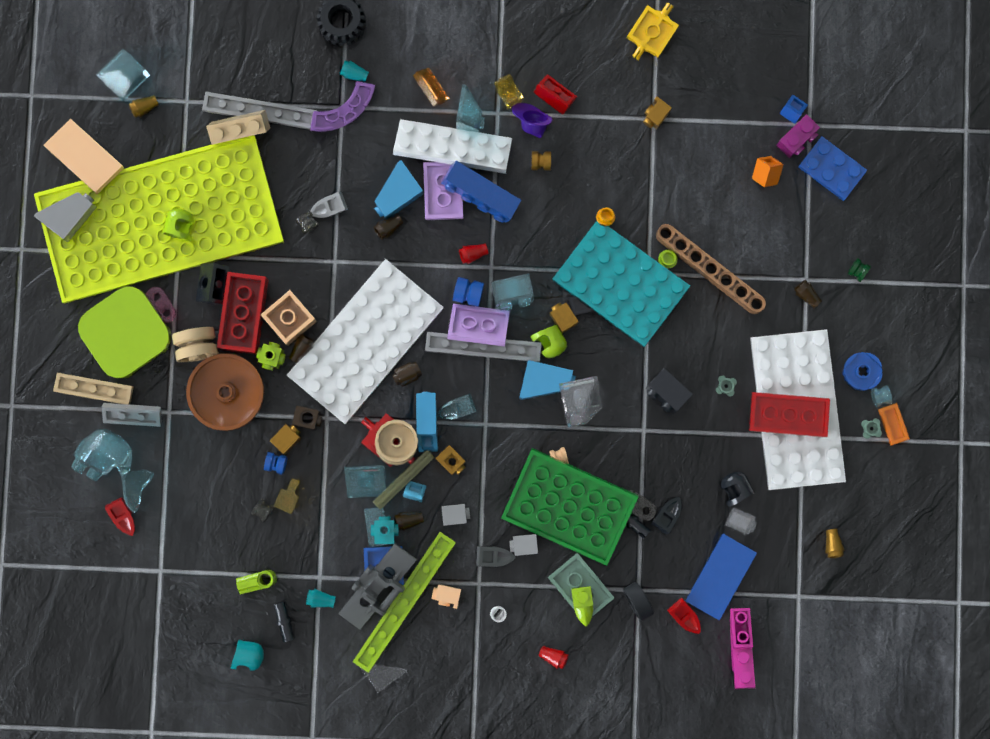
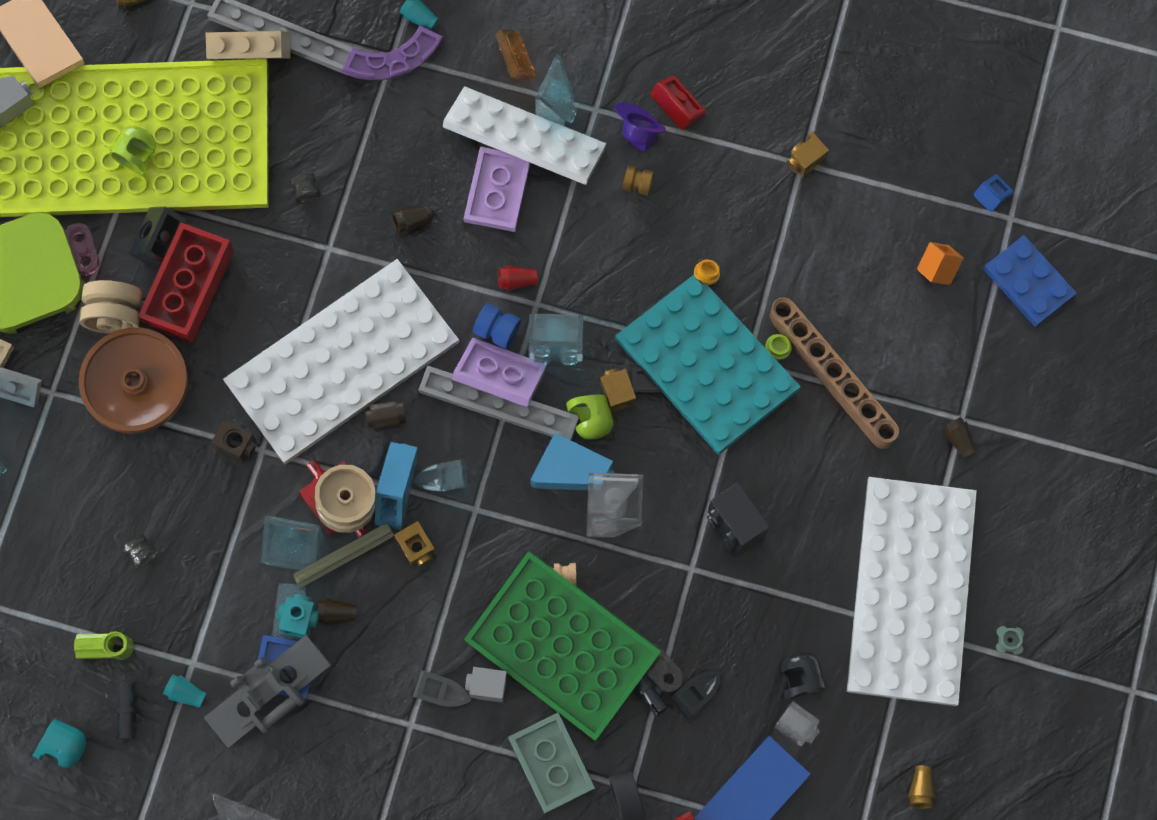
camera: 10 degrees right, 10 degrees down
(275, 463) = (175, 491): blue wheel -> none
(277, 359) = (212, 355): lime brick -> none
(286, 438) = (198, 462): pearl gold brick -> none
(287, 498) = (177, 544): clear yellow plate -> none
(288, 318) = (246, 303): light nougat brick -> none
(301, 347) = (252, 348): dark brown cone -> none
(329, 206) = (341, 174): light grey plate -> none
(397, 192) = (436, 176): dark azure slope -> none
(404, 602) = (298, 724): lime plate -> none
(414, 491) = (354, 576): medium azure slope -> none
(446, 595) = (361, 728): light nougat brick -> none
(455, 514) = (401, 619): light grey brick -> none
(481, 192) = (546, 199): blue brick -> none
(500, 616) = (429, 776): white hinge -> none
(508, 91) = (615, 82): clear yellow bracket -> none
(583, 604) = (548, 785): lime plate -> none
(652, 31) = (826, 51): yellow plate -> none
(730, 389) = (816, 527): sand green plate -> none
(789, 414) = (898, 591): red plate -> none
(794, 140) = (991, 226): magenta brick -> none
(859, 270) = (1037, 420): dark green wheel -> none
(873, 371) = (1016, 543): blue plate -> none
(881, 396) = (1033, 598): clear light blue wheel -> none
(893, 424) = (1042, 642): orange tile -> none

